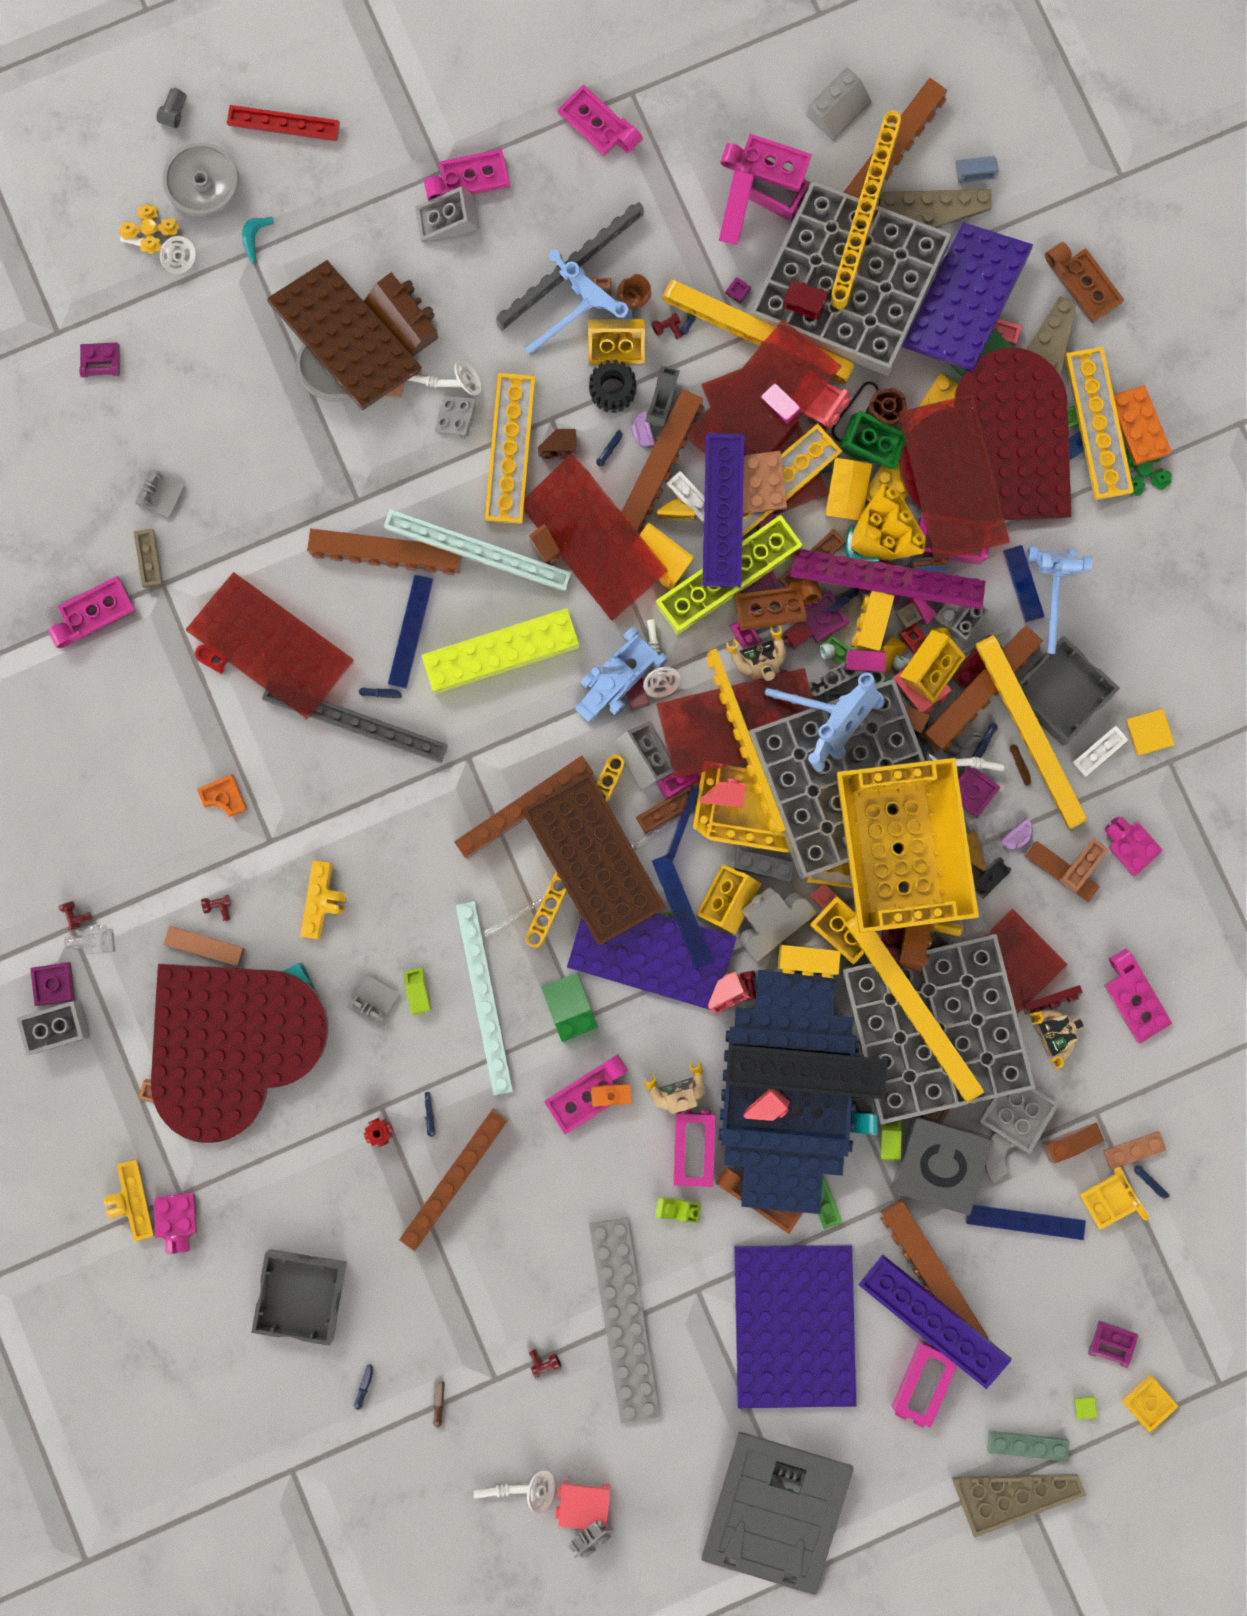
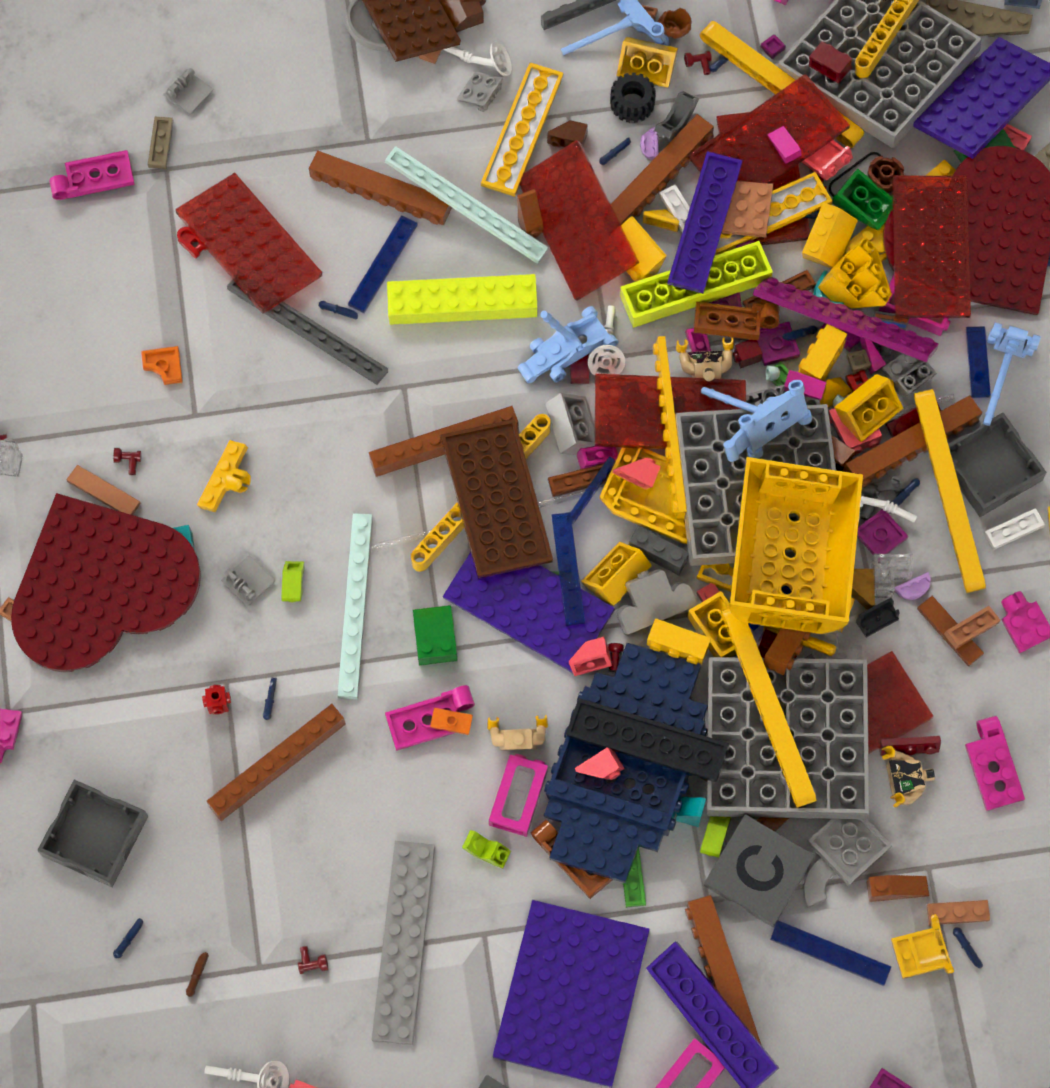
camera: 15 degrees right, 15 degrees down
(1020, 764) = (935, 529): reddish brown piece -> none

